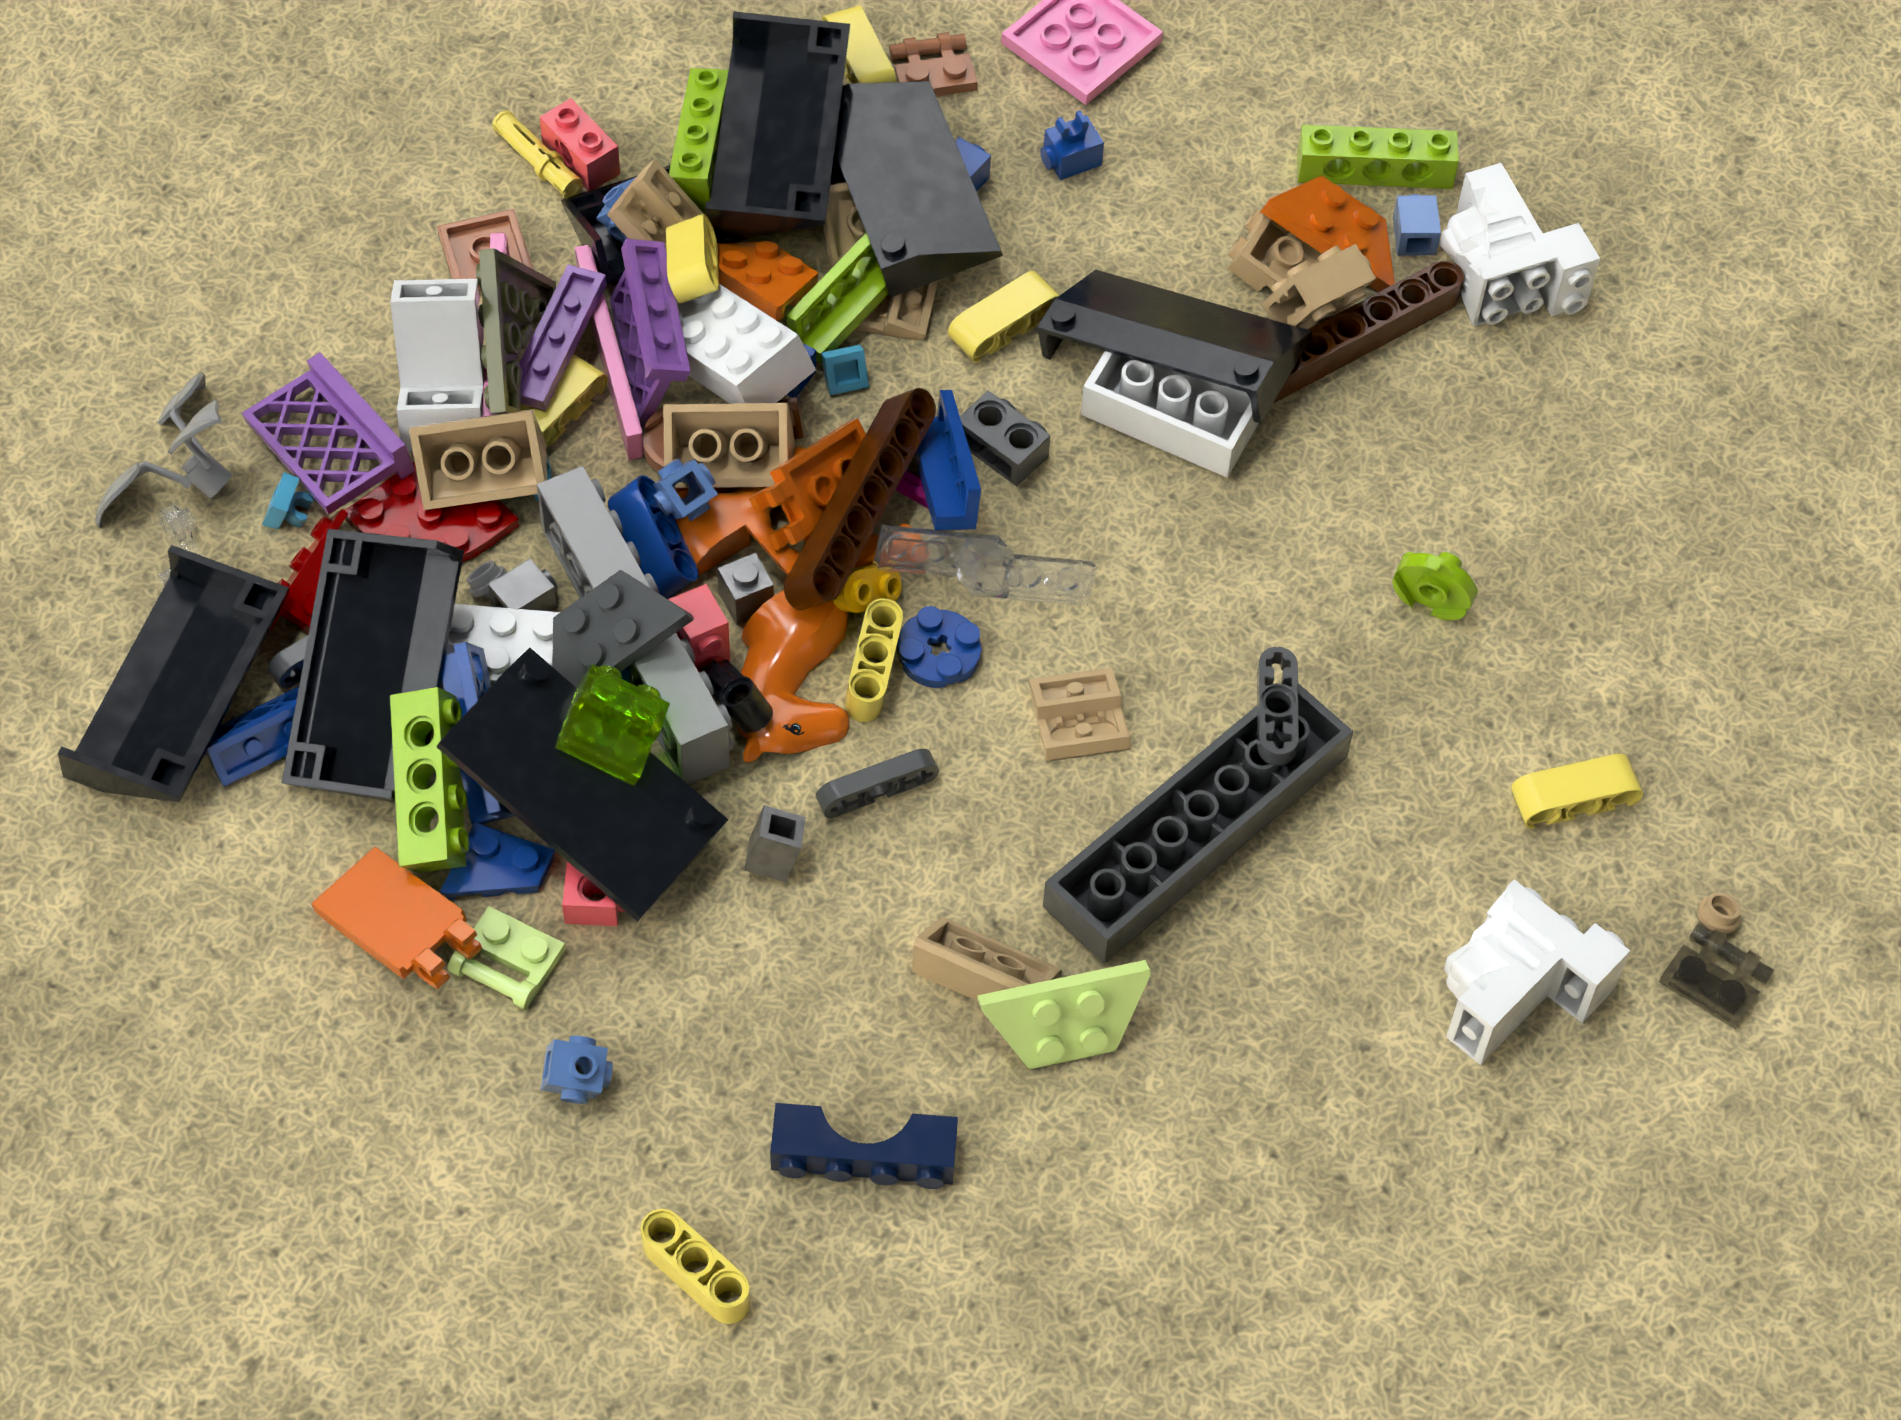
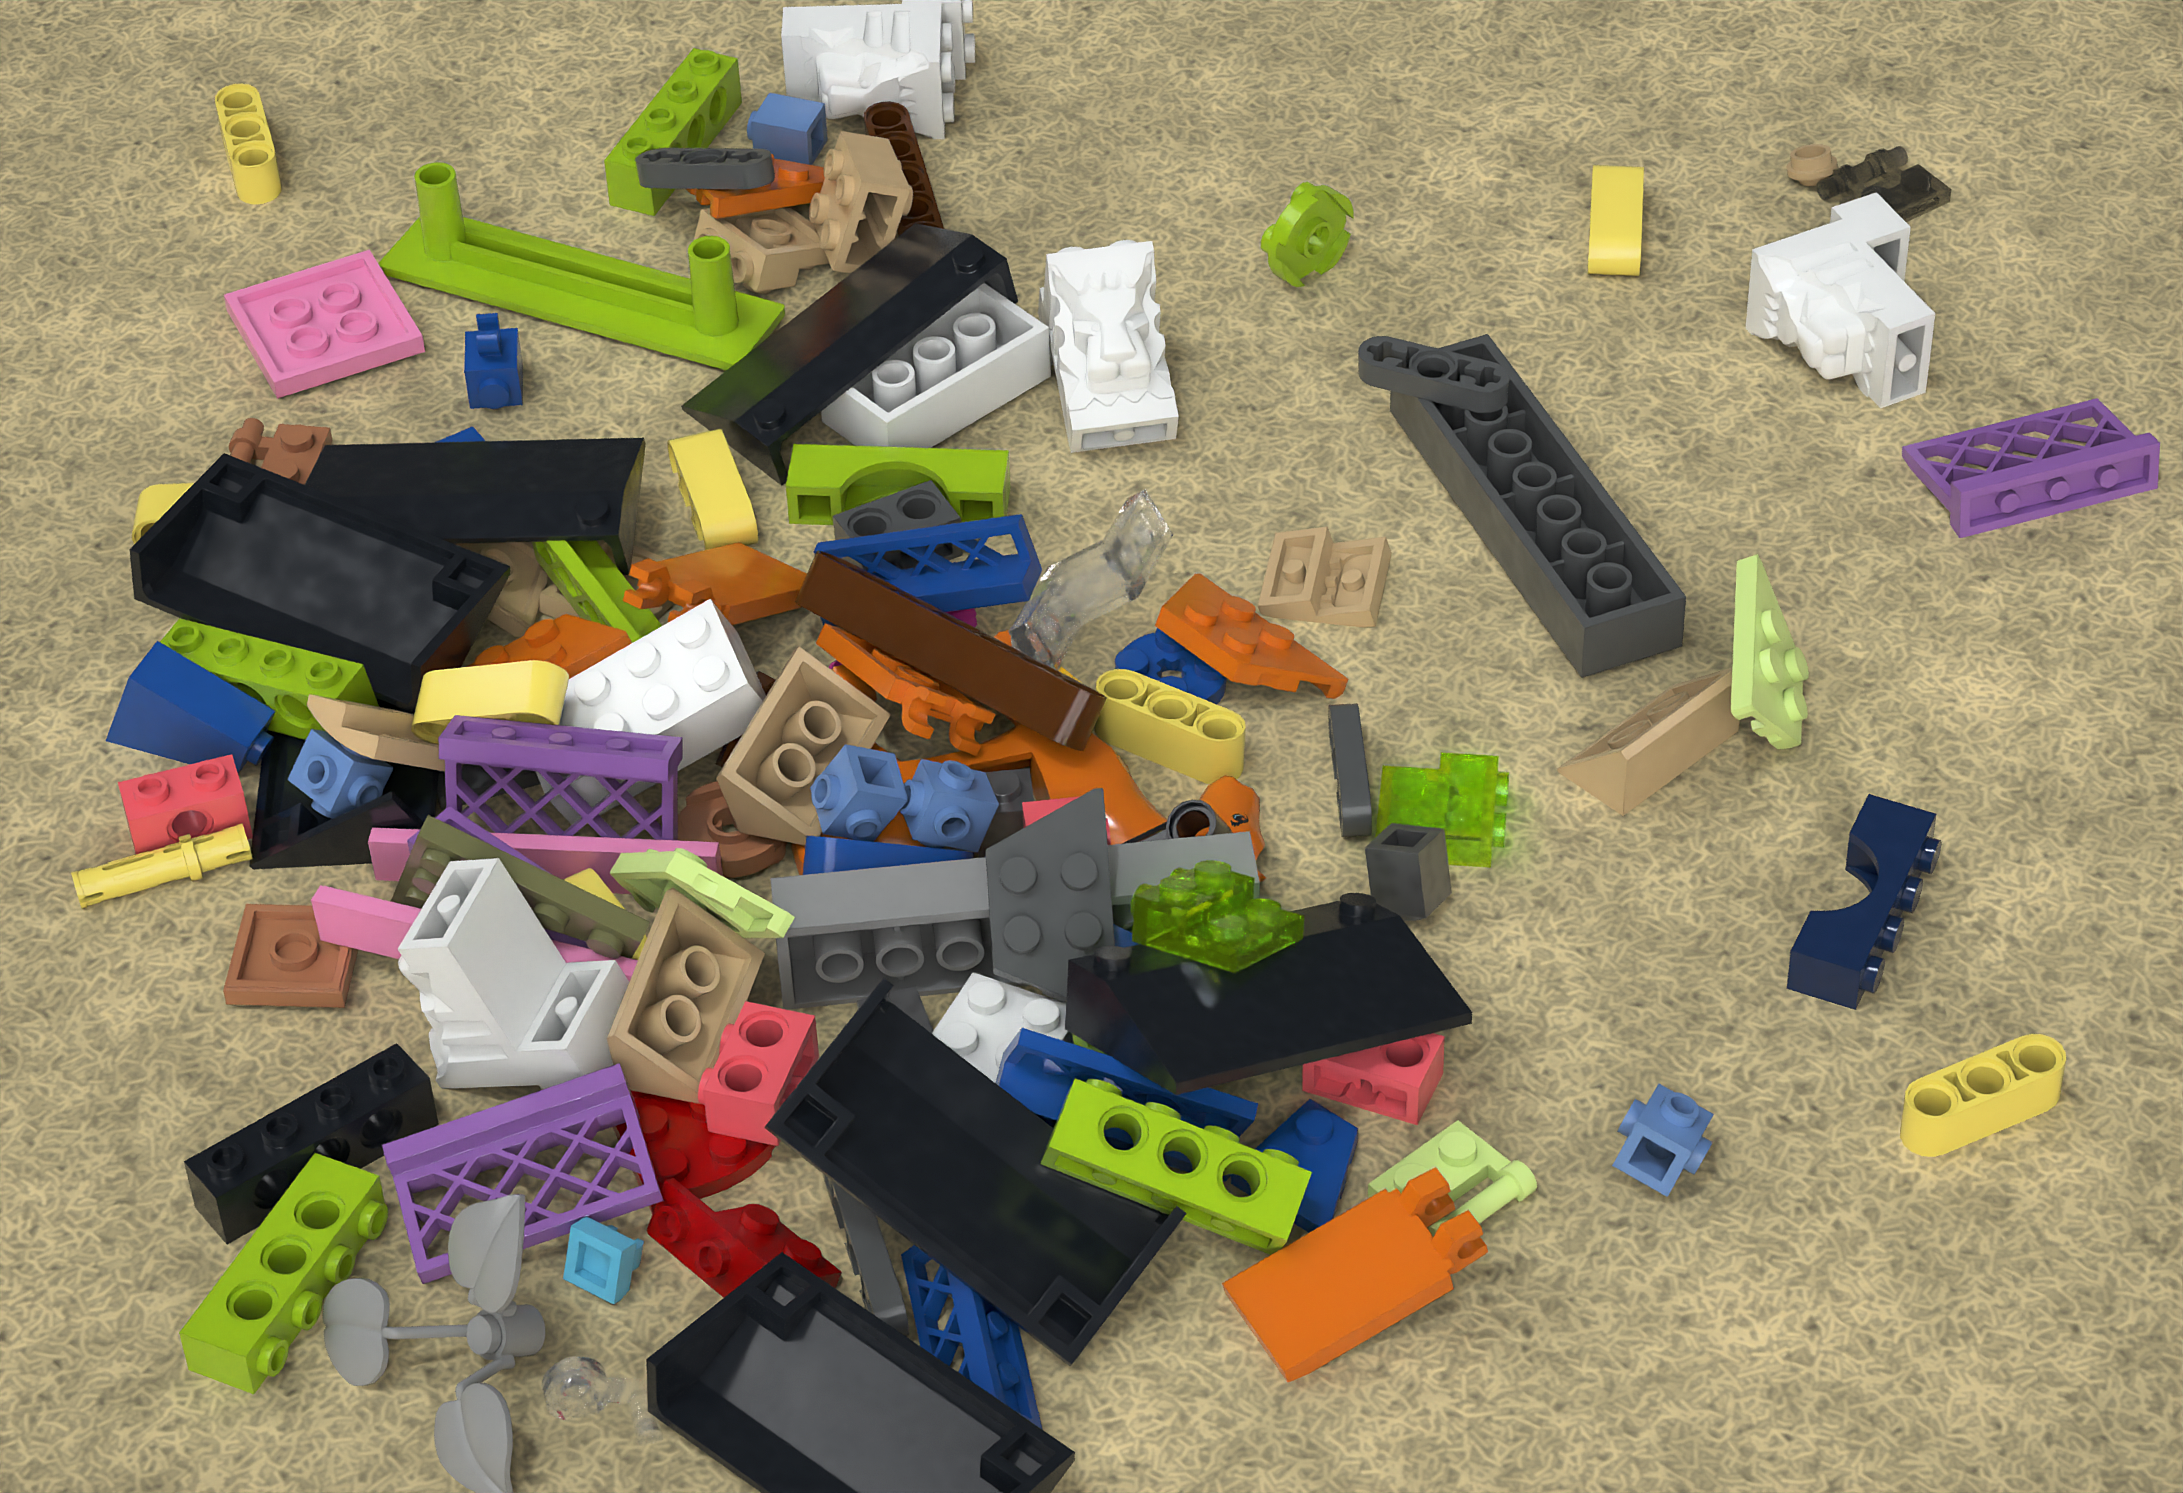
camera: 65 degrees left, 15 degrees down
(220, 346) = (284, 1274): none -> lime brick
(322, 318) = (342, 1119): none -> black brick
(443, 517) = (757, 1070): none -> coral brick
(554, 430) = (654, 872): none -> yellowish green wing
(659, 111) = (188, 713): none -> blue slope
(701, 544) = (949, 805): none -> medium blue brick
(861, 853) = (1454, 797): none -> clear neon green plate
(884, 345) = (733, 576): none -> orange tile
(978, 674) = (1240, 642): none -> orange wing
(1041, 383) = (842, 477): none -> lime arch
(1189, 164) = (578, 288): none -> lime piece
(1238, 495) = (1108, 346): none -> white brick
(1297, 194) = (705, 168): none -> dark grey beam
(1392, 1174) = (2029, 488): none -> medium lavender fence

